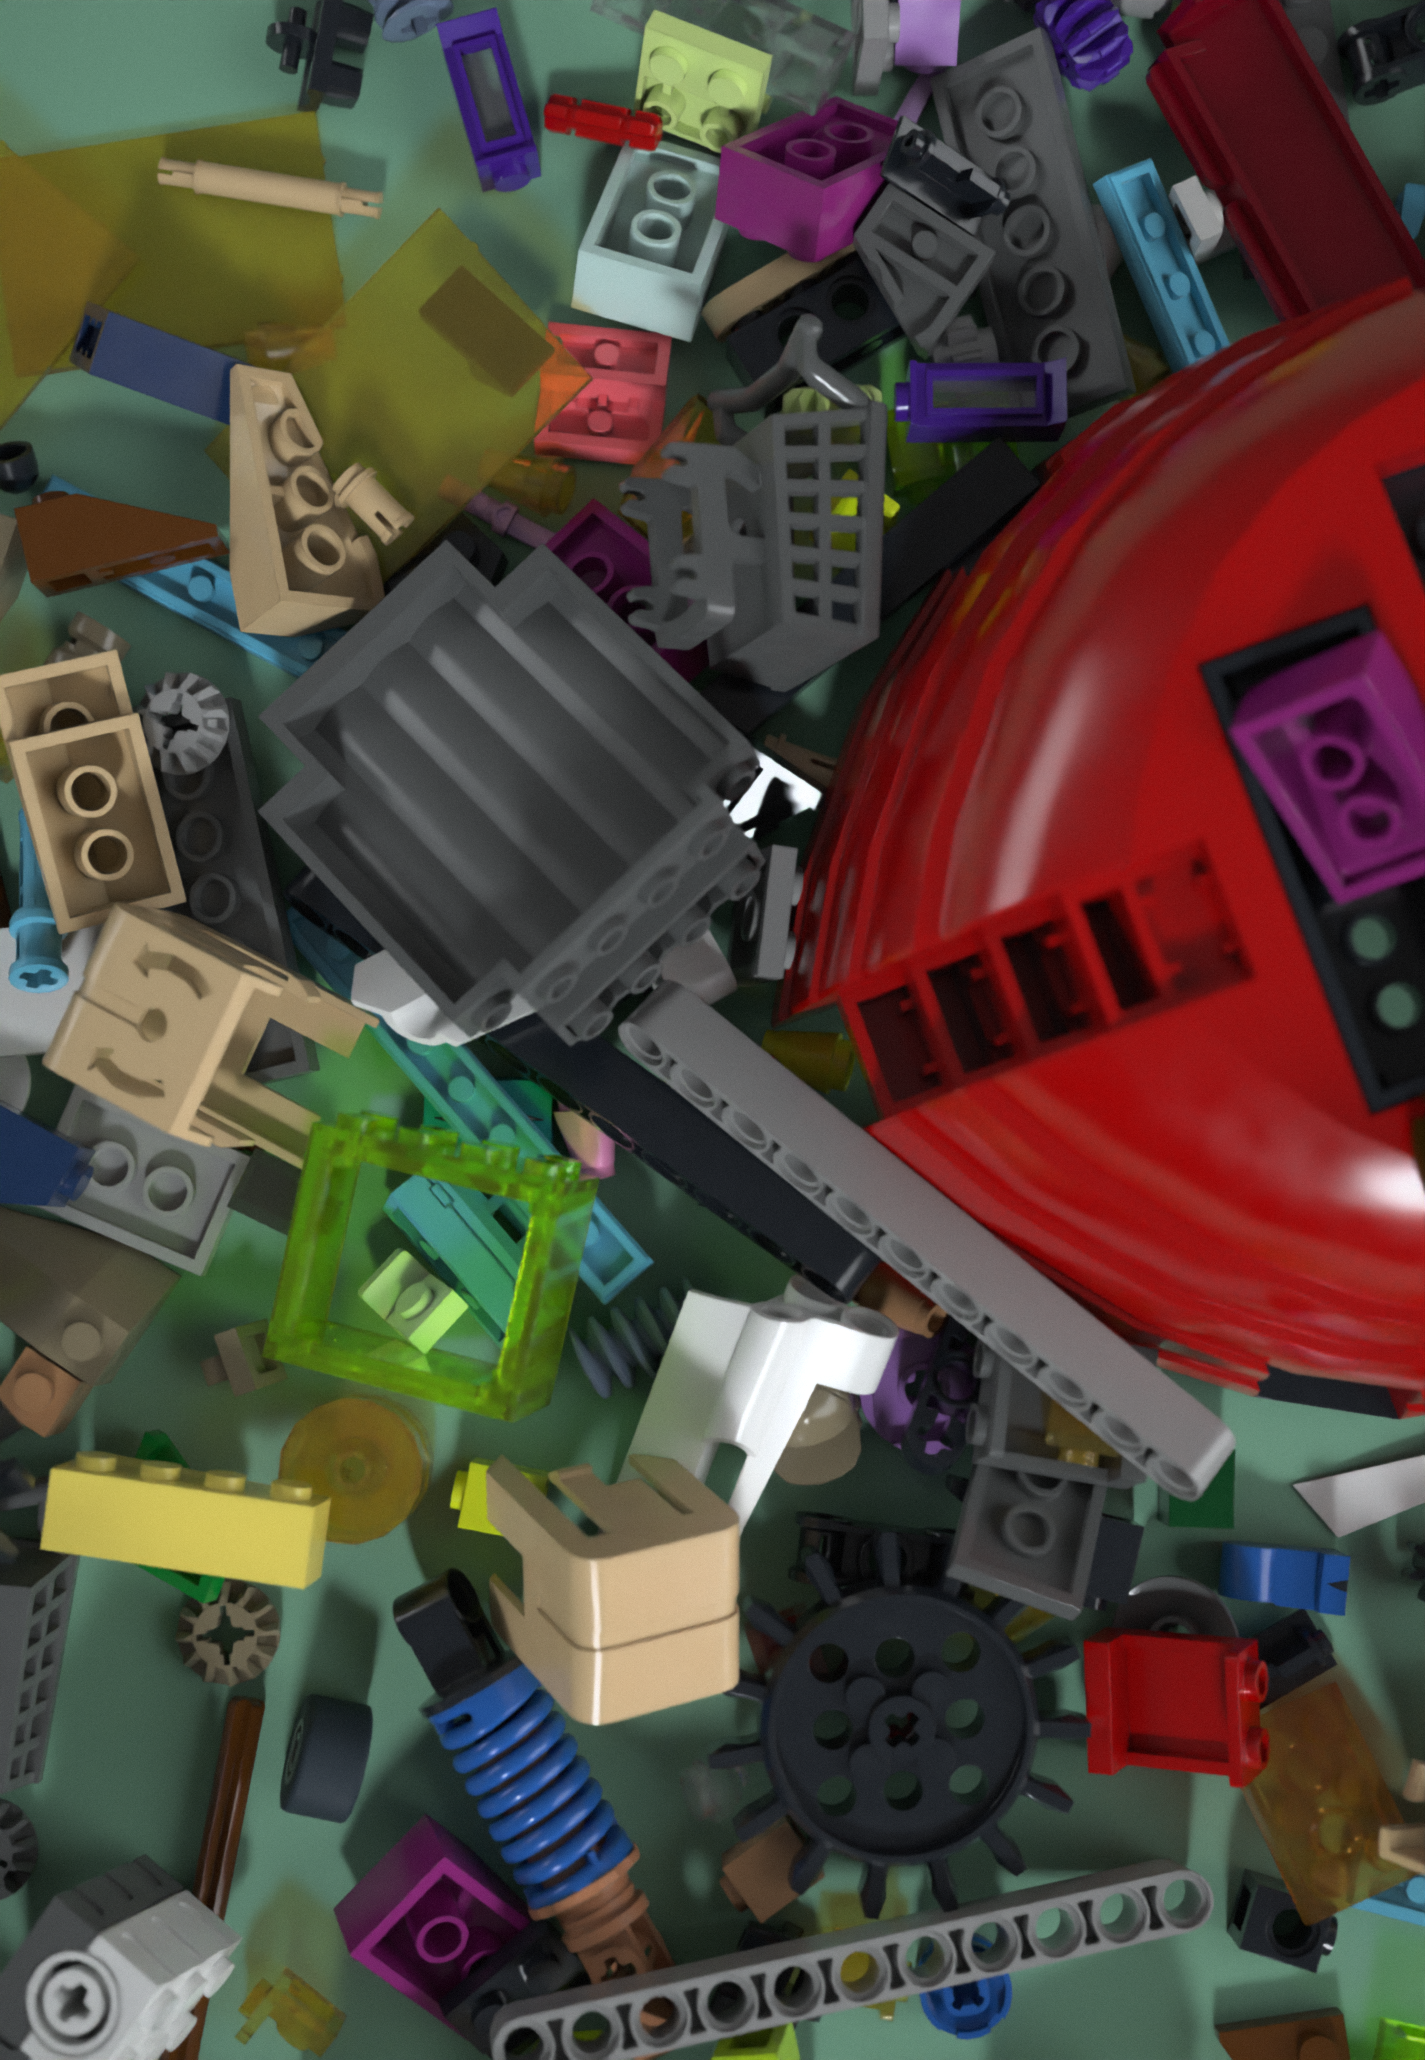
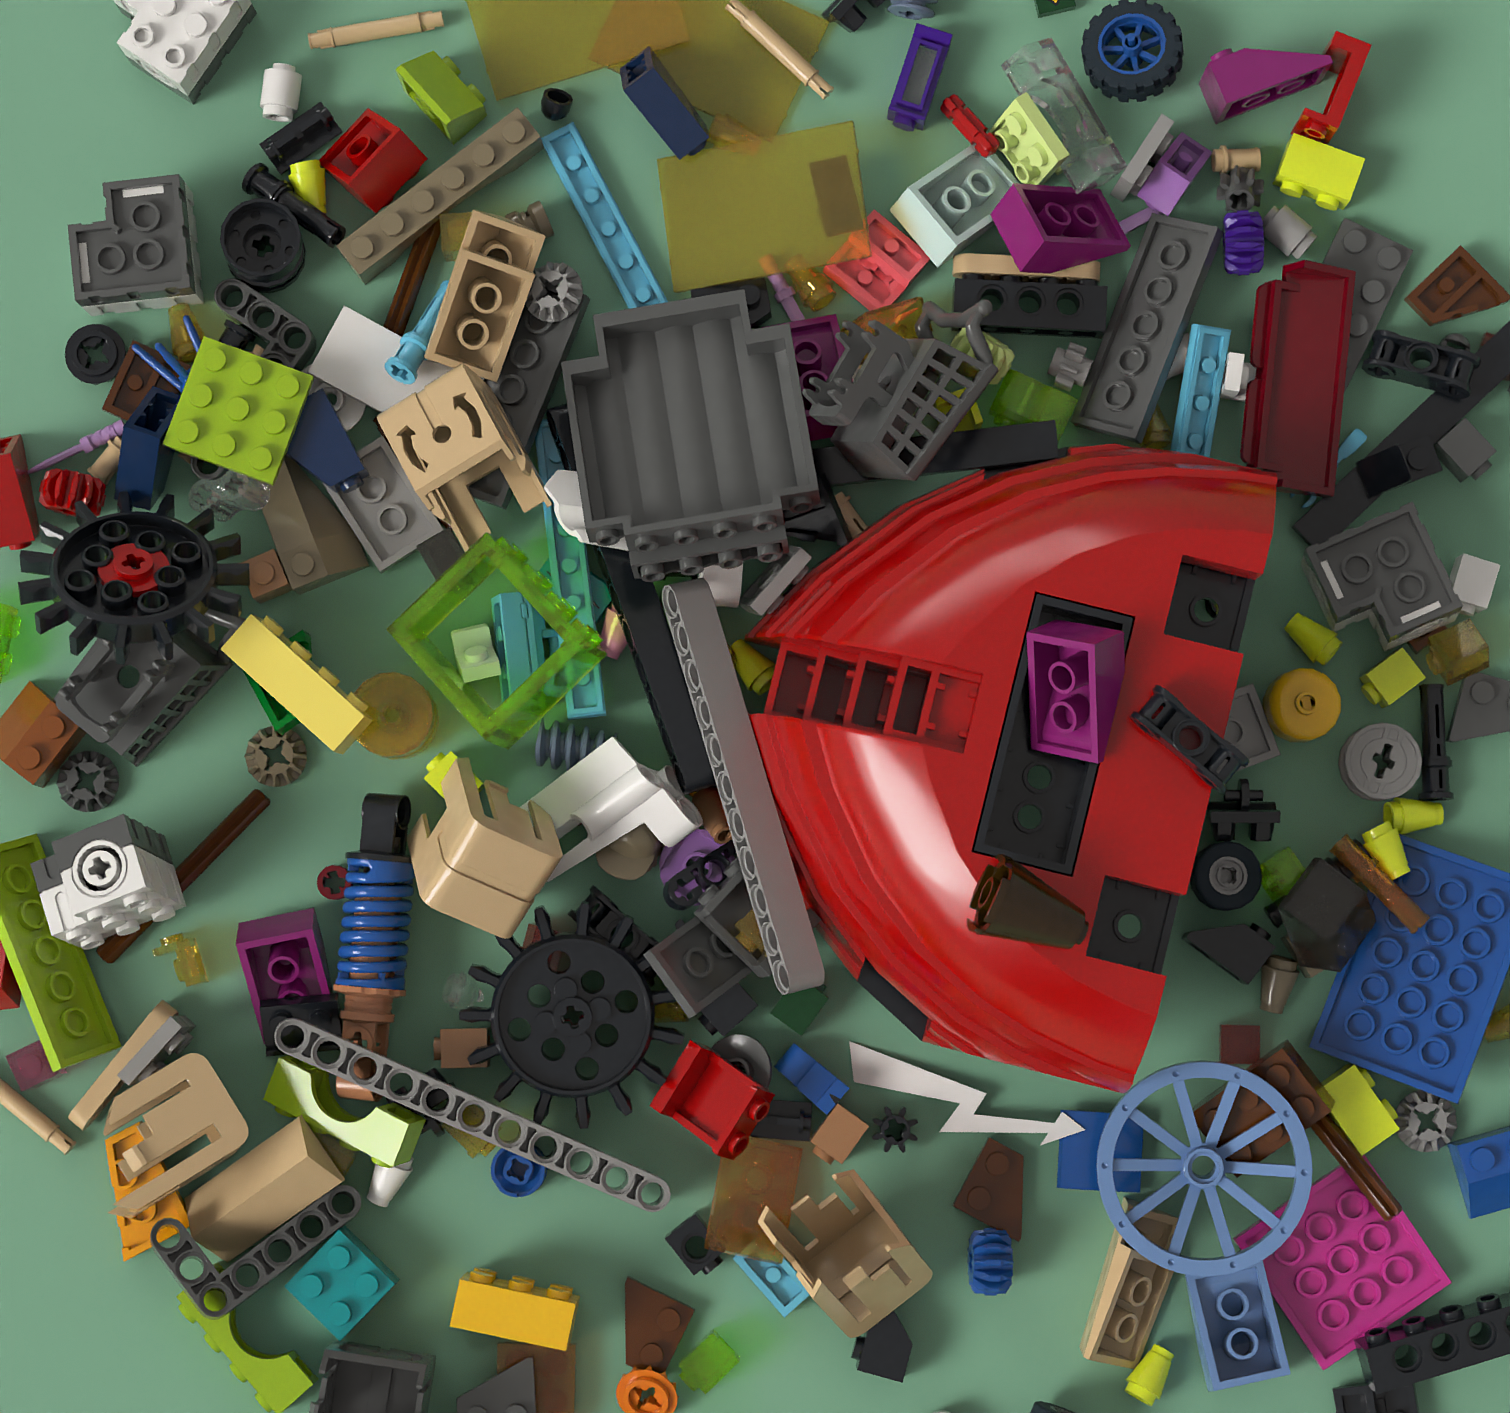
camera: 35 degrees right, 0 degrees up
(95, 541) = (570, 171): reddish brown slope -> none
(242, 1359) = (373, 627): dark tan tile -> none
(291, 543) = (671, 233): tan wedge -> none
(326, 1758) = (284, 847): black wheel -> none
(372, 502) = (721, 244): tan pin -> none
(429, 1775) = (327, 891): none -> dark red bush
(920, 265) = (1074, 307): dark grey wing -> none
(942, 178) = (1116, 270): black hinge -> none
(983, 402) = (1057, 396): dark purple window -> none
(1375, 1631) = (838, 1134): none -> medium nougat brick

